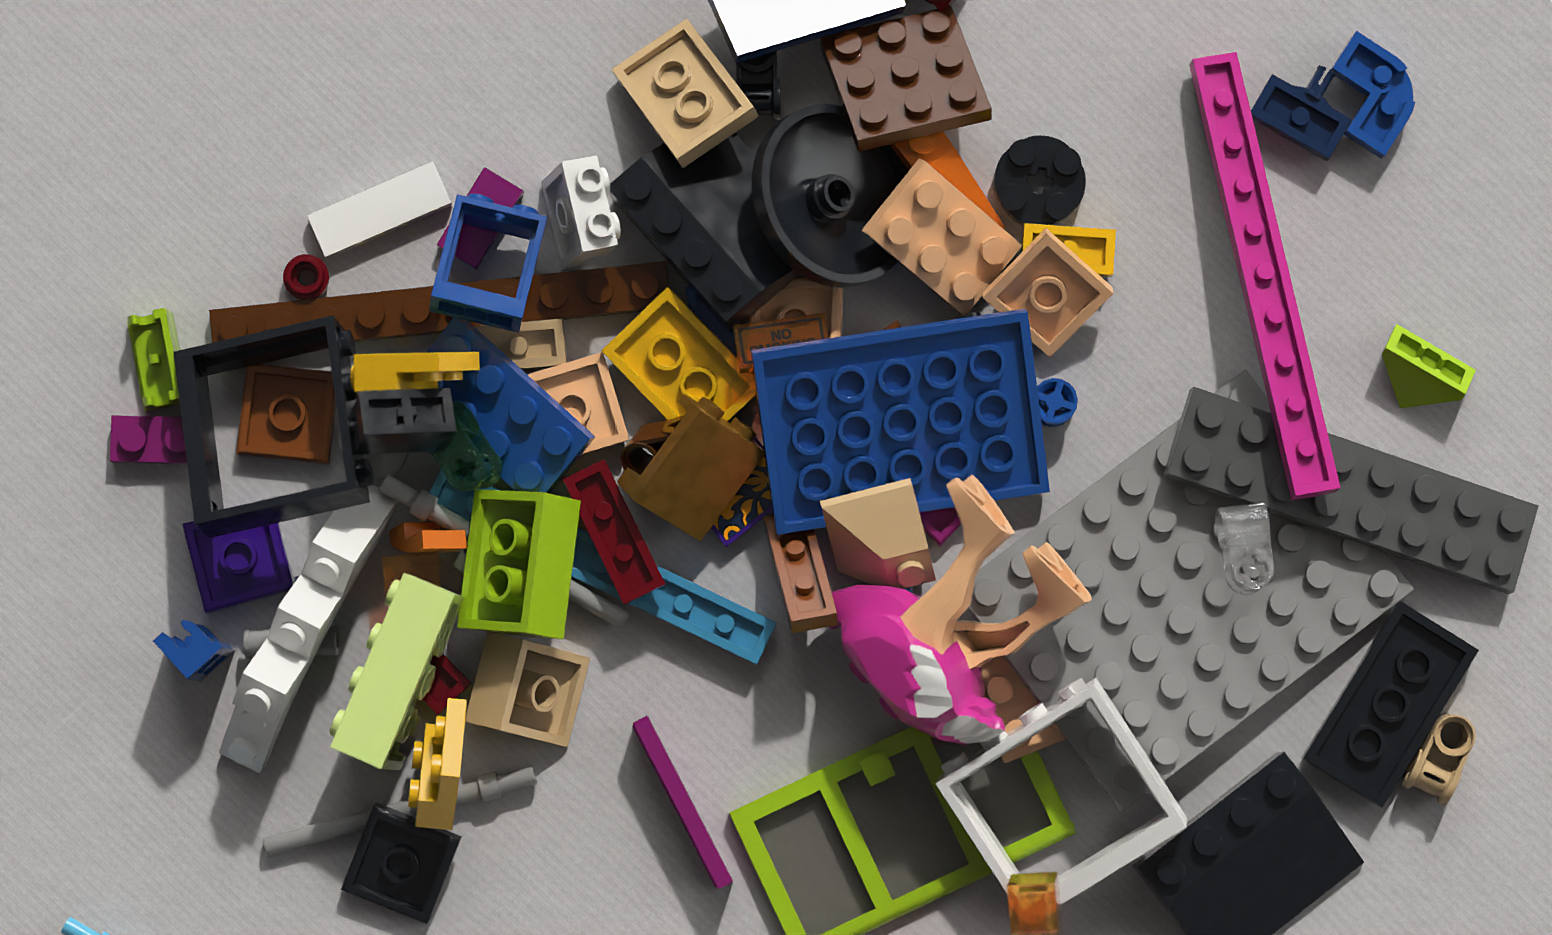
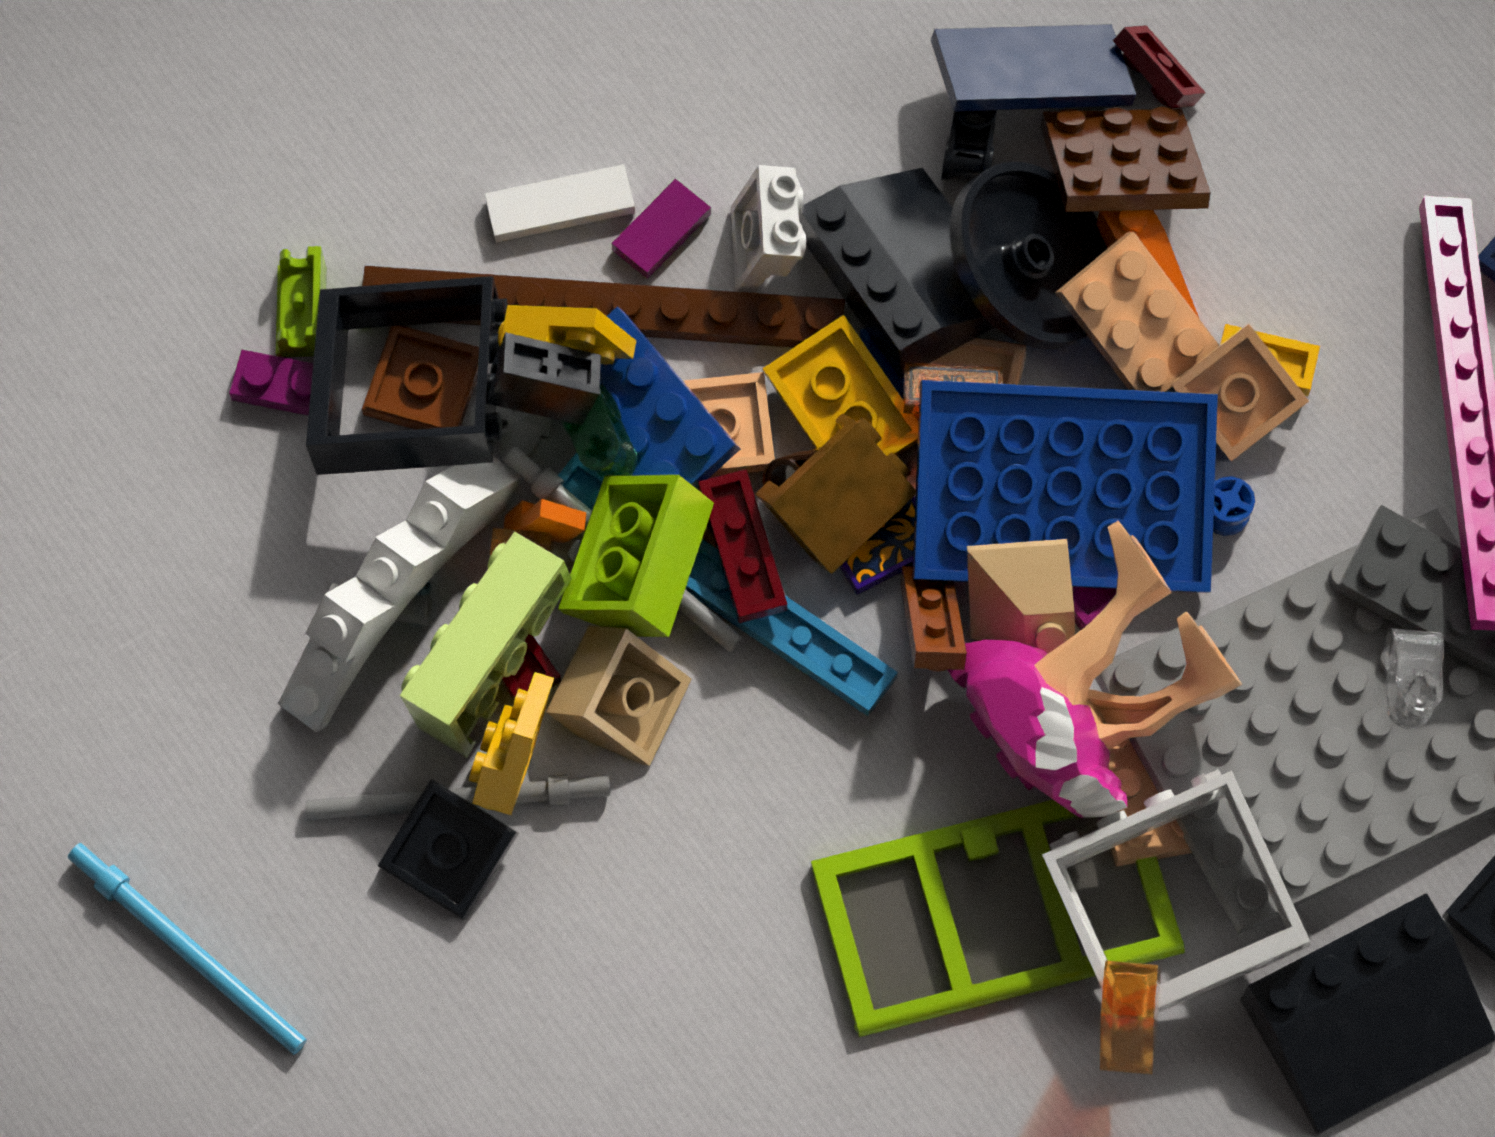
camera: 10 degrees right, 15 degrees down
(197, 653) = (279, 591): blue hinge -> none
(238, 565) = (338, 514): dark purple tile -> none
(296, 267) = (466, 241): dark red plate -> none
(477, 304) = (648, 294): blue window -> none
(536, 344) = (690, 351): tan plate -> none
(682, 802) = (763, 840): magenta tile -> none
(685, 93) = (895, 137): tan plate -> none
(1061, 166) = (1250, 265): black plate -> none

